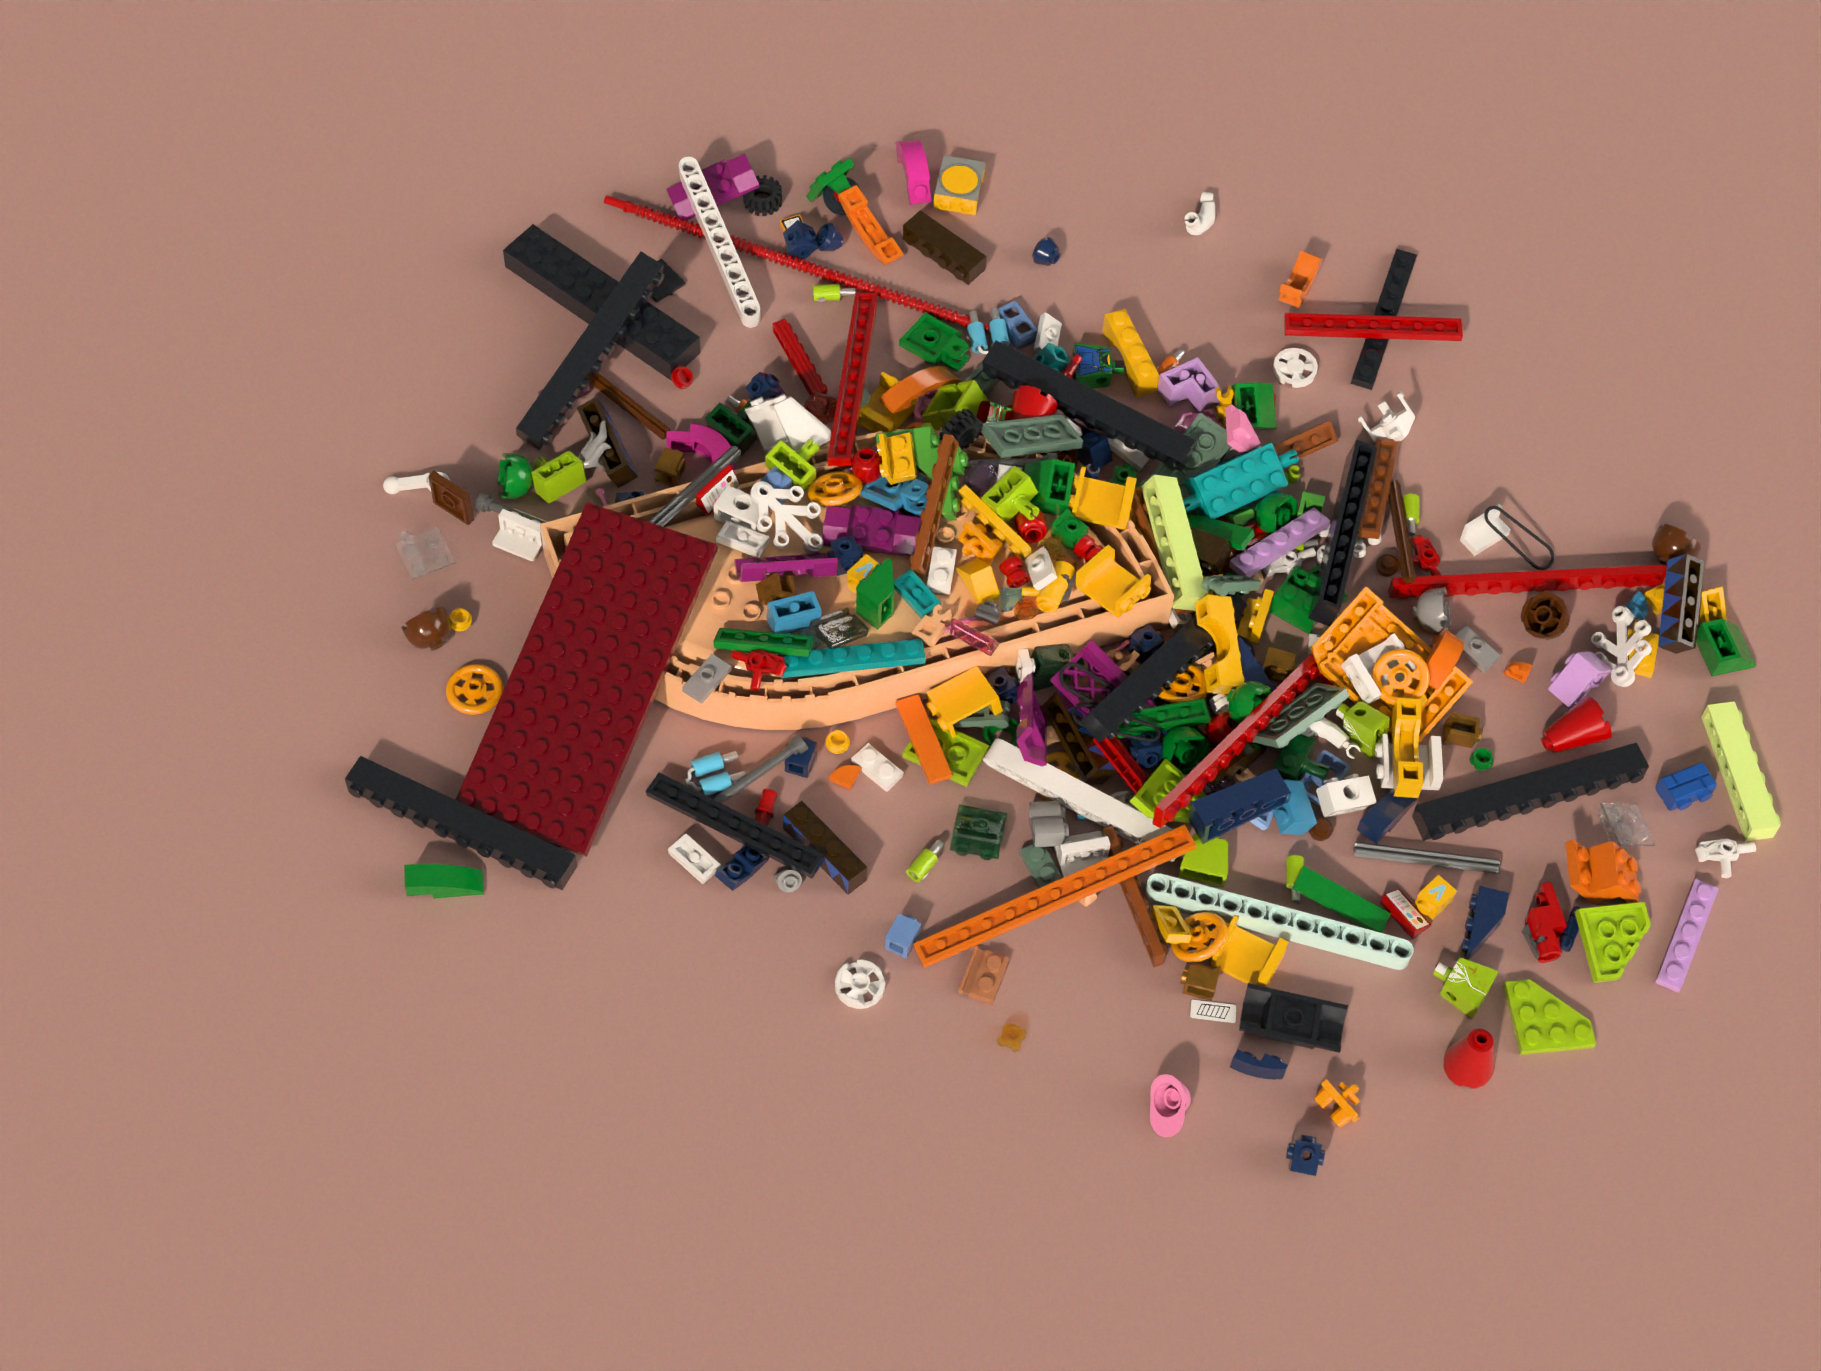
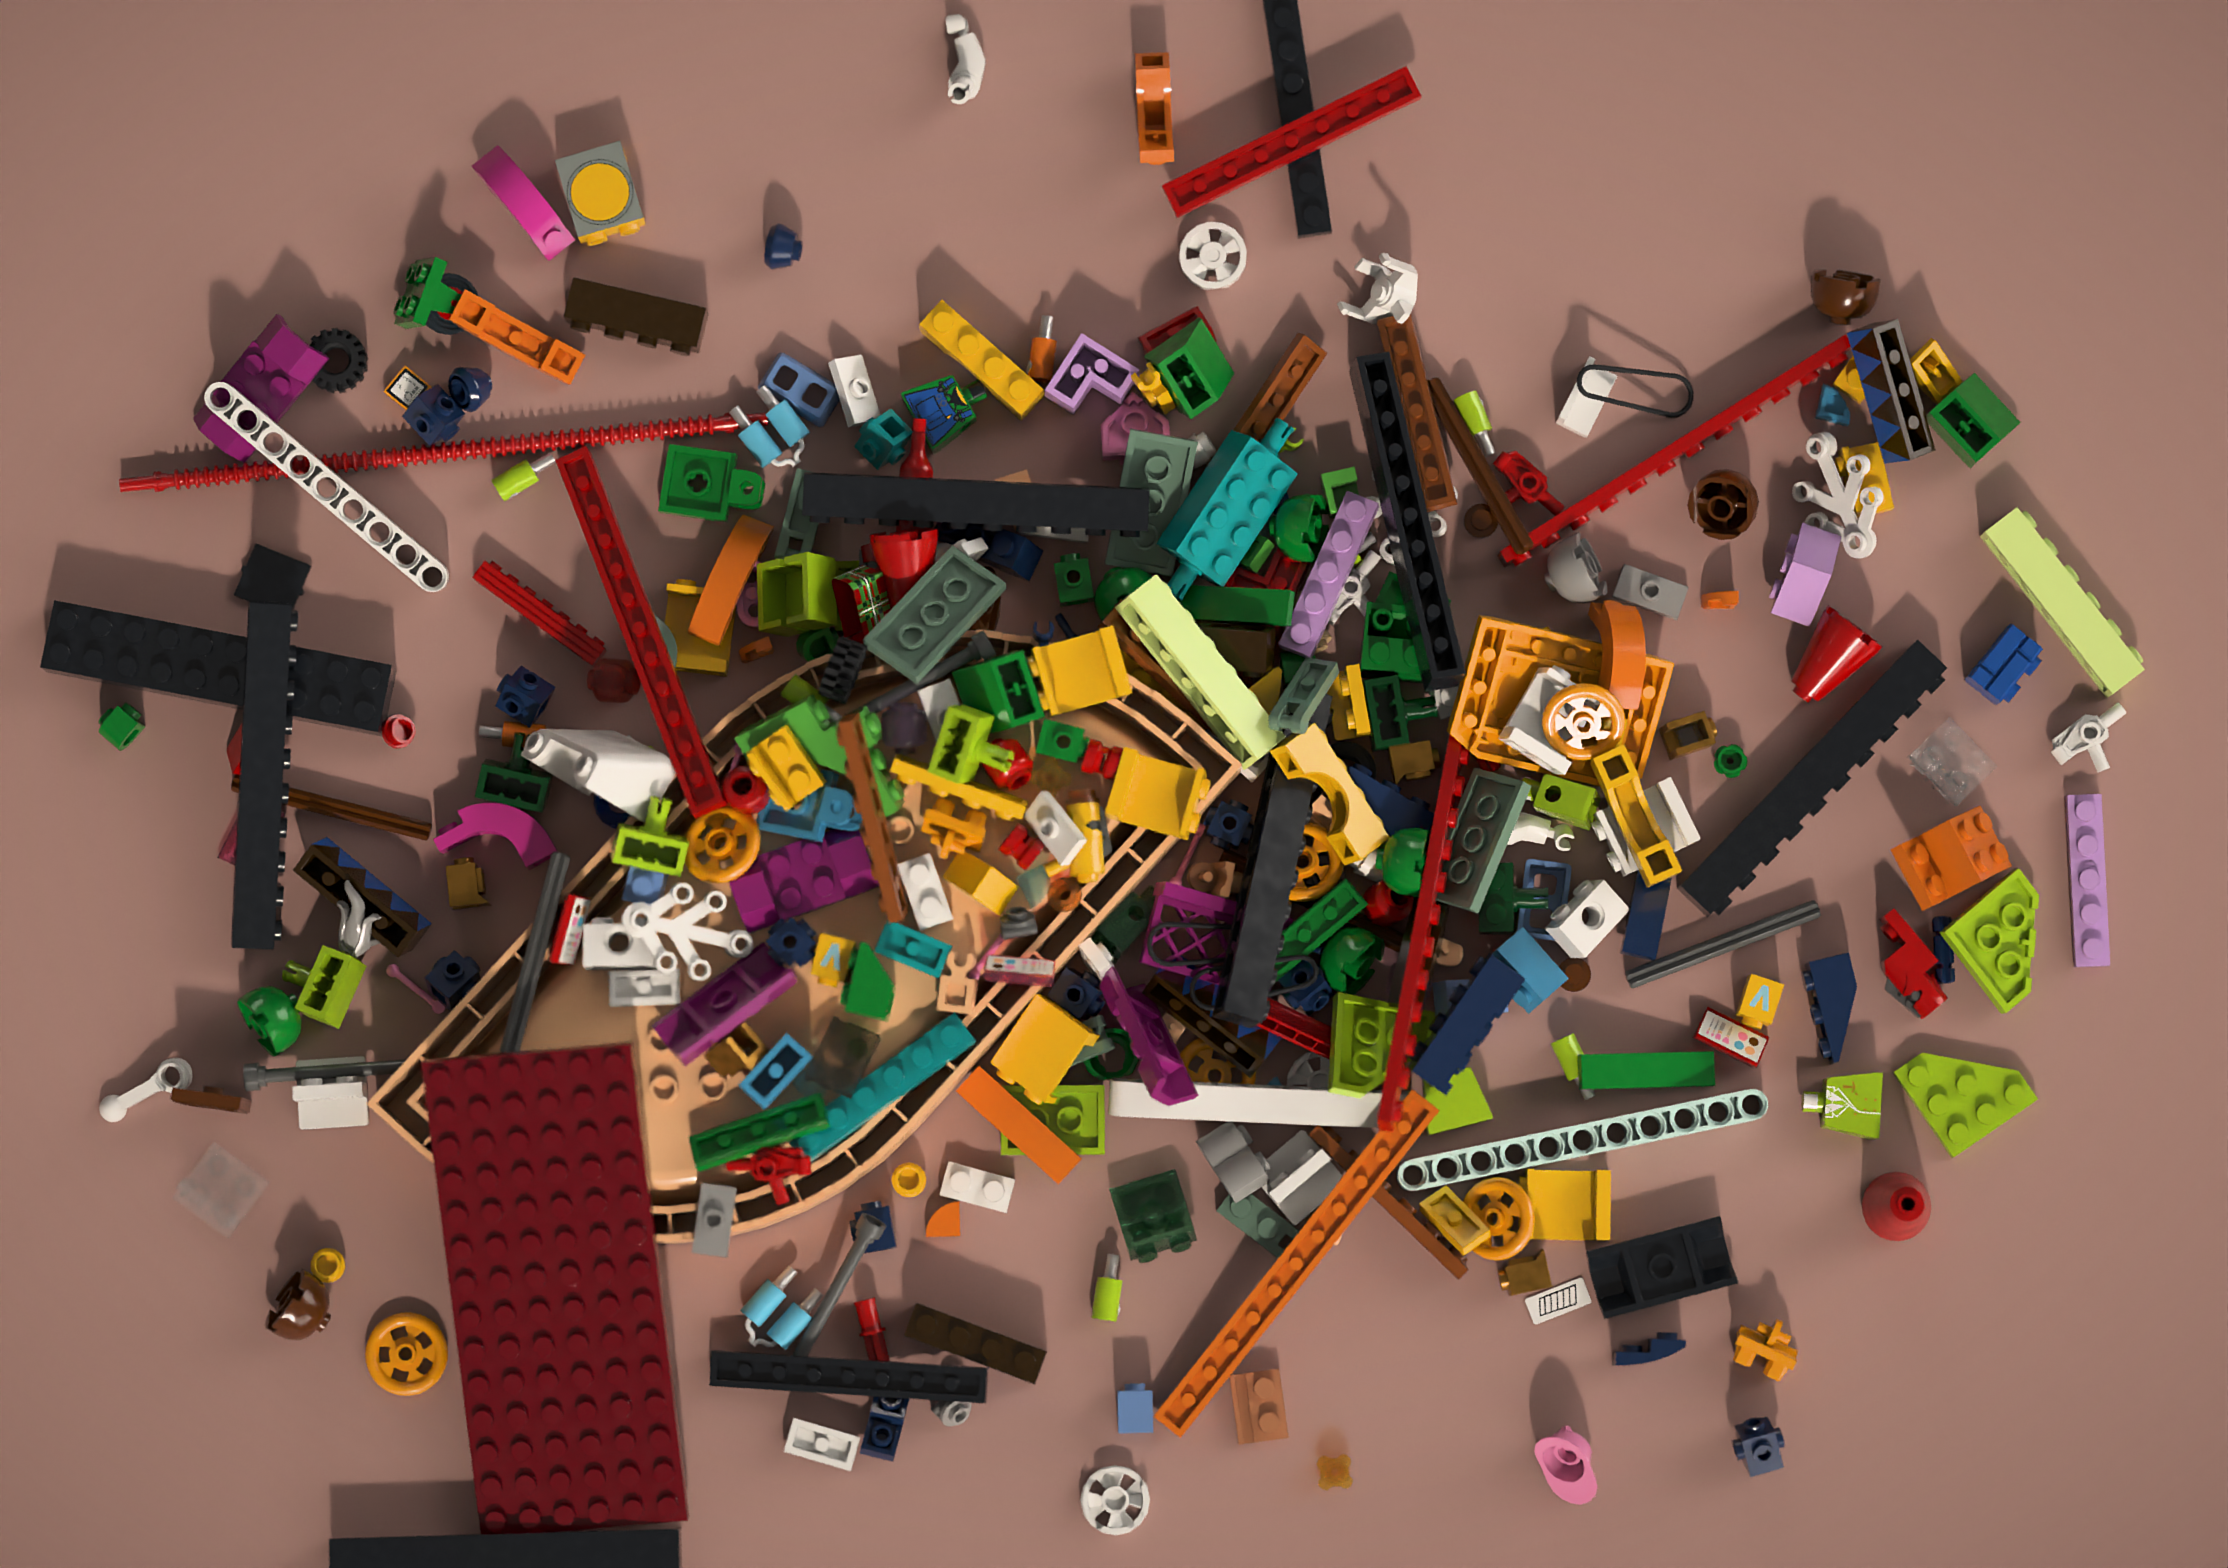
camera: 25 degrees left, 25 degrees up
(528, 304) = (121, 725): none -> green plate
(1239, 430) = (1198, 433): bright pink plate -> none
(1278, 630) = (1390, 713): none -> dark green brick

